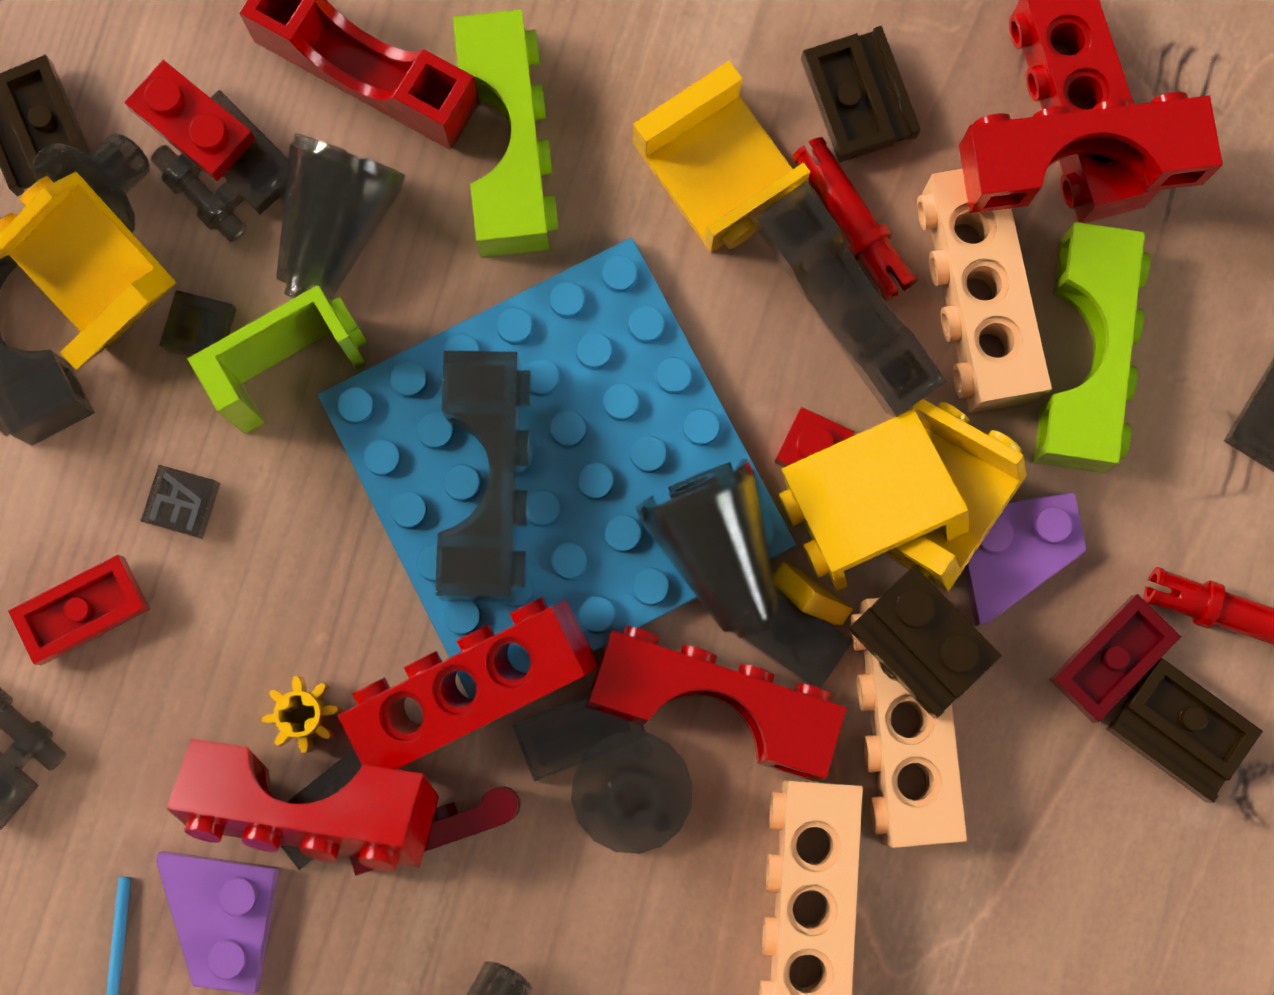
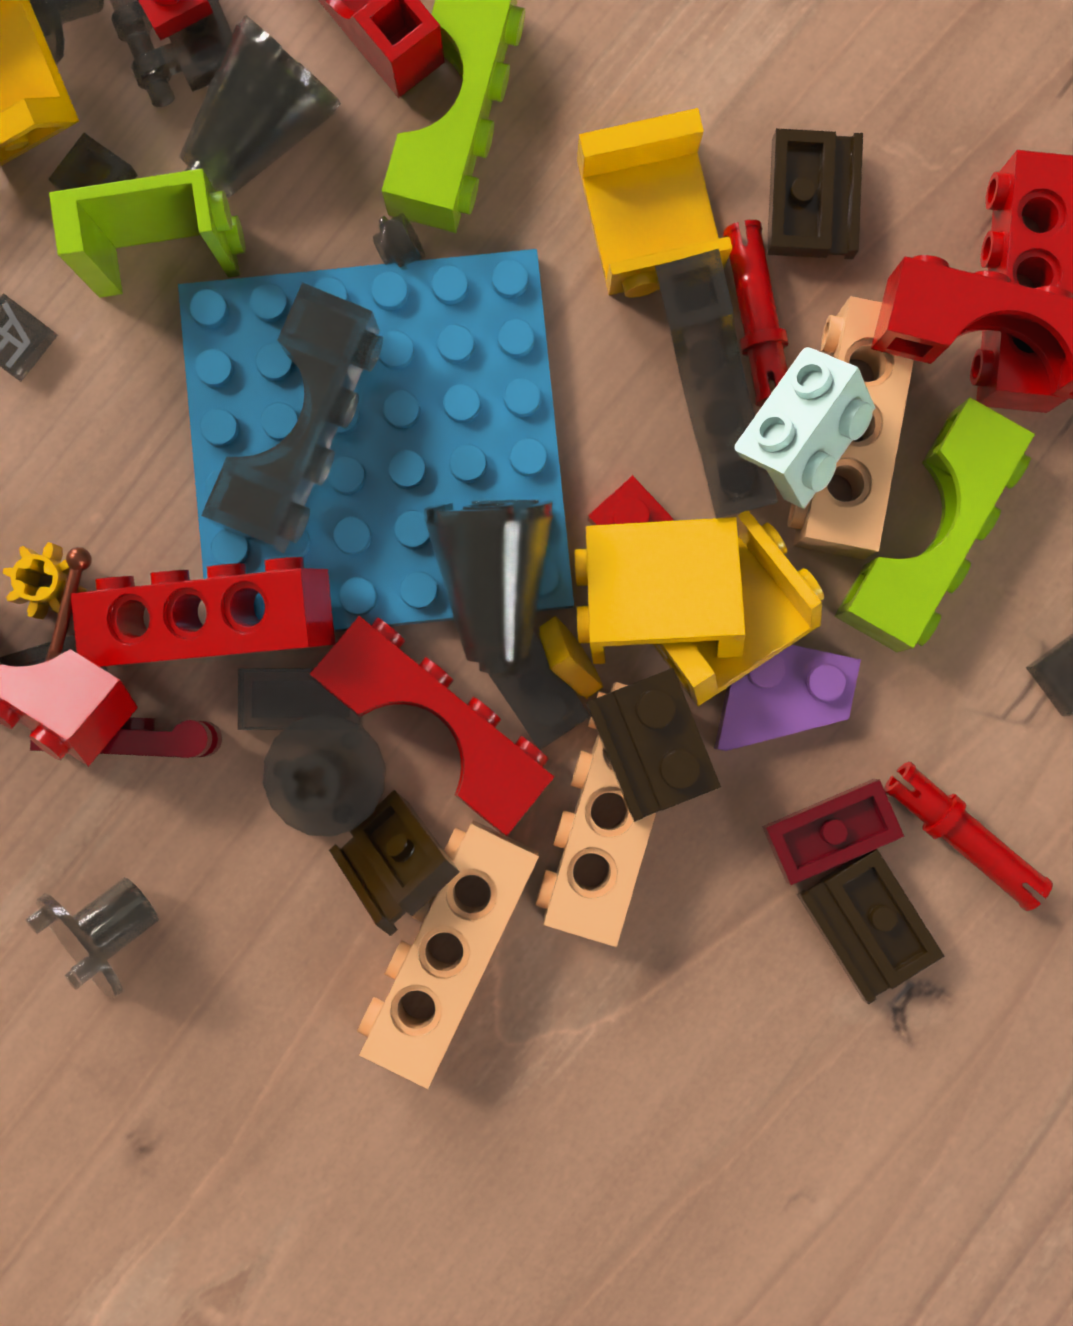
camera: 20 degrees right, 5 degrees up
(330, 683) = (78, 560): none -> copper hinge
(503, 279) = (398, 241): none -> clear smoke plate
(732, 845) = (394, 862): none -> dark brown plate
(945, 303) = (808, 424): none -> light aqua bracket

